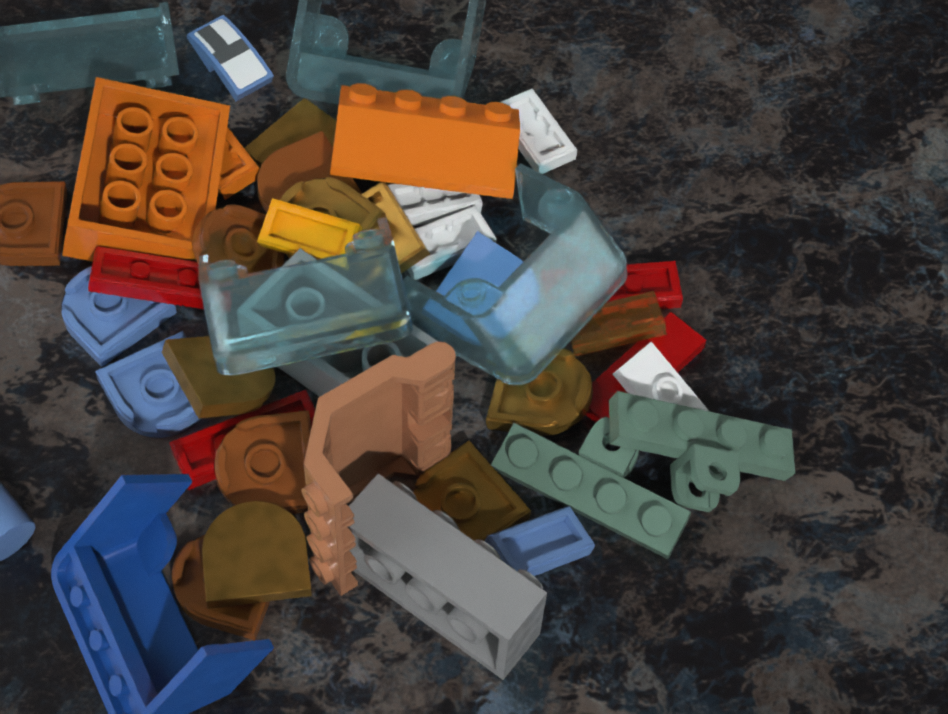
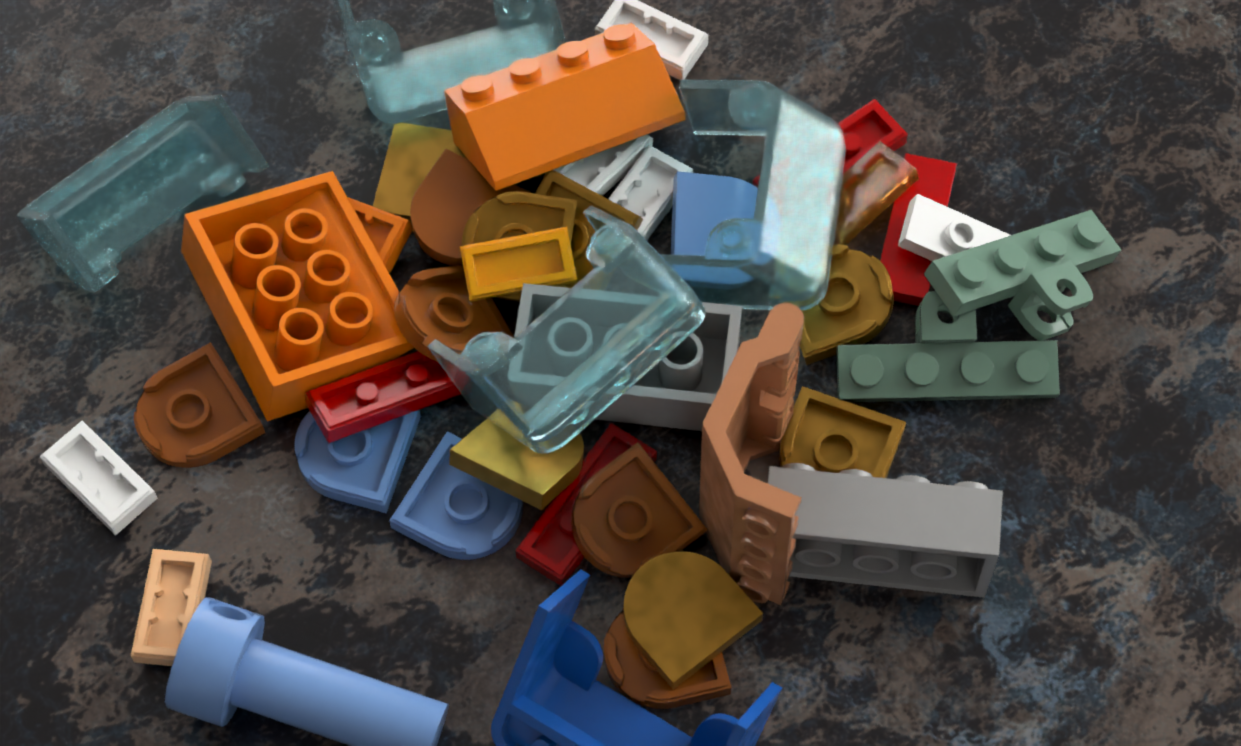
camera: 25 degrees left, 5 degrees up
(231, 56) = (292, 117): slope -> none
(543, 542) = (940, 444): medium blue tile -> none

